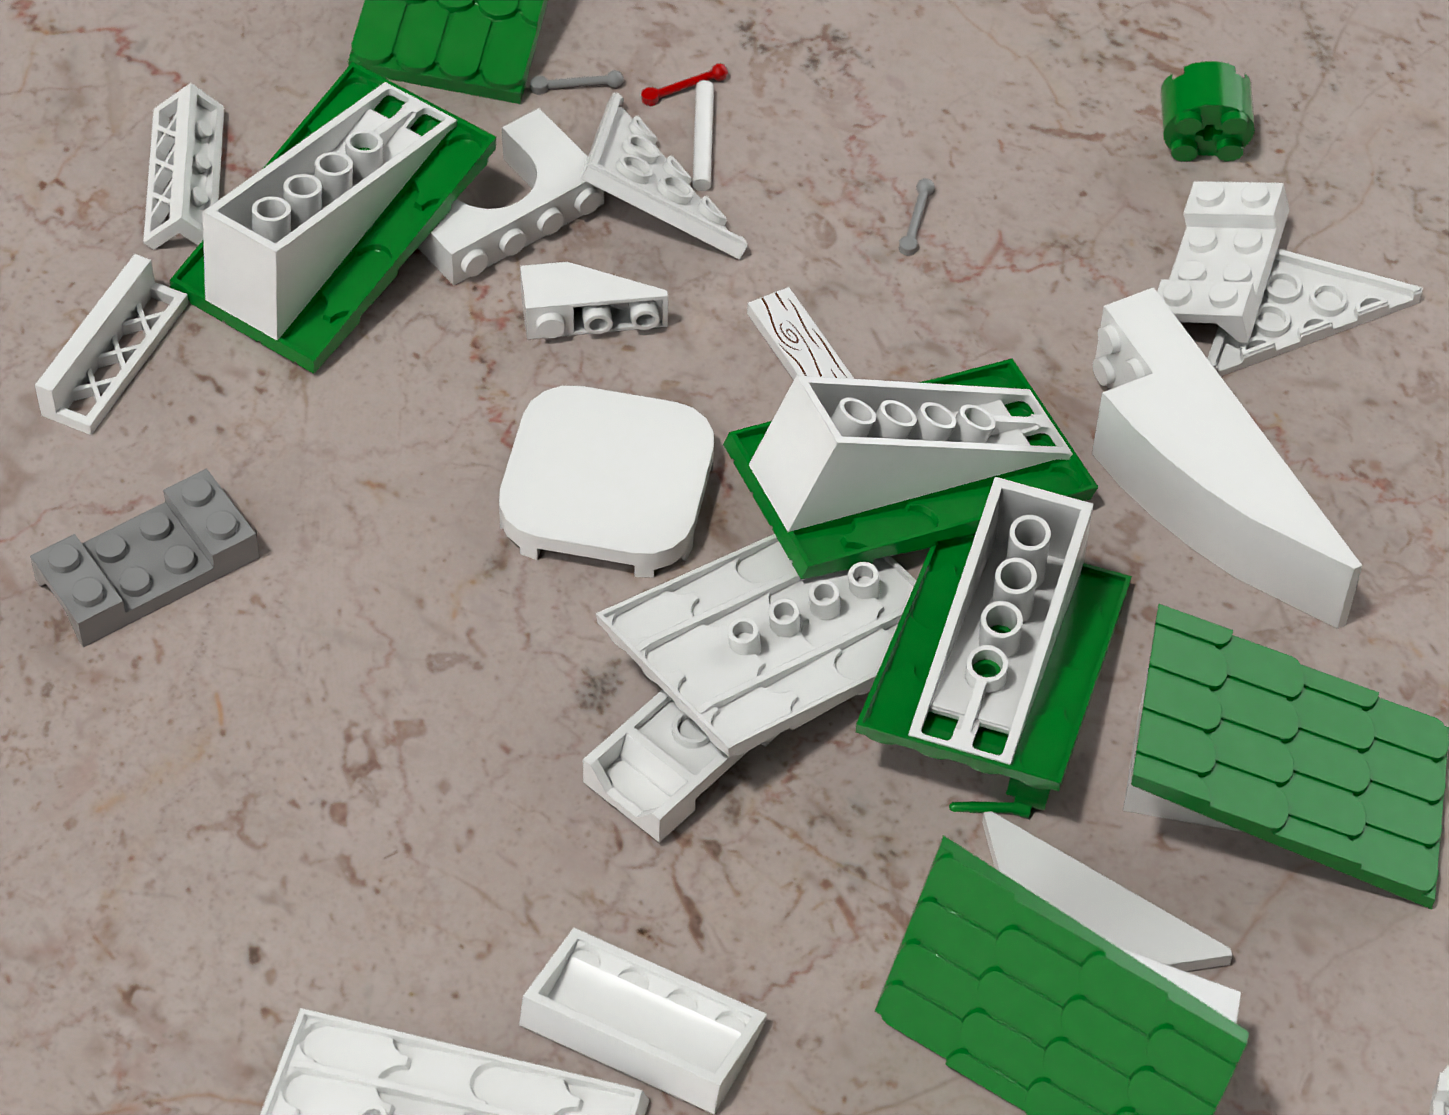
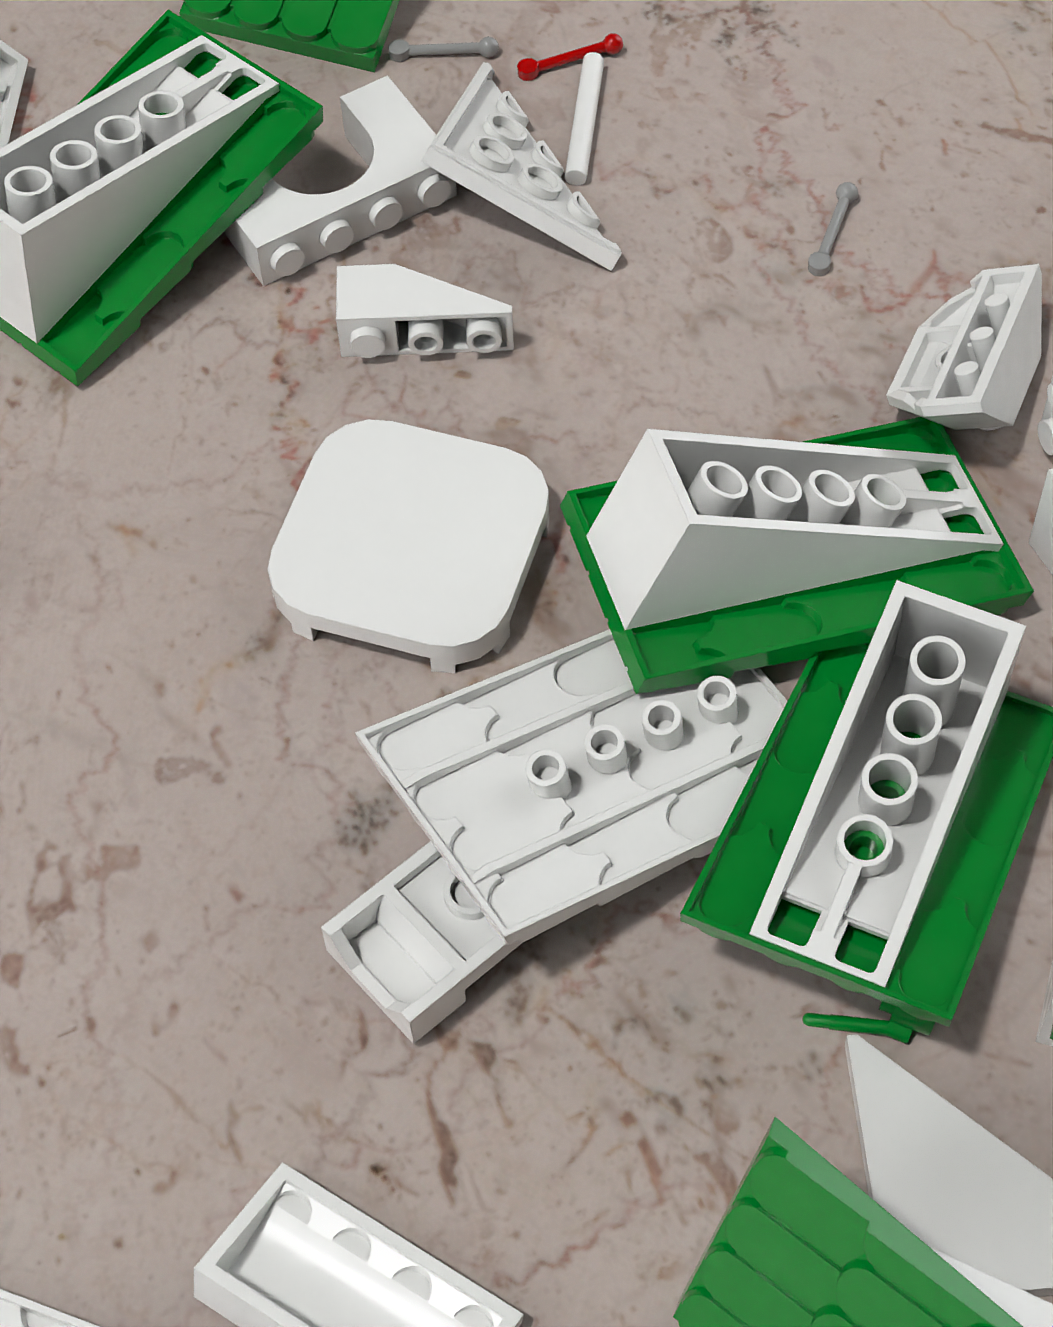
camera: 10 degrees right, 5 degrees up
(795, 336) = (670, 376): white tile -> none
(1039, 309) = (975, 353): none -> white wedge

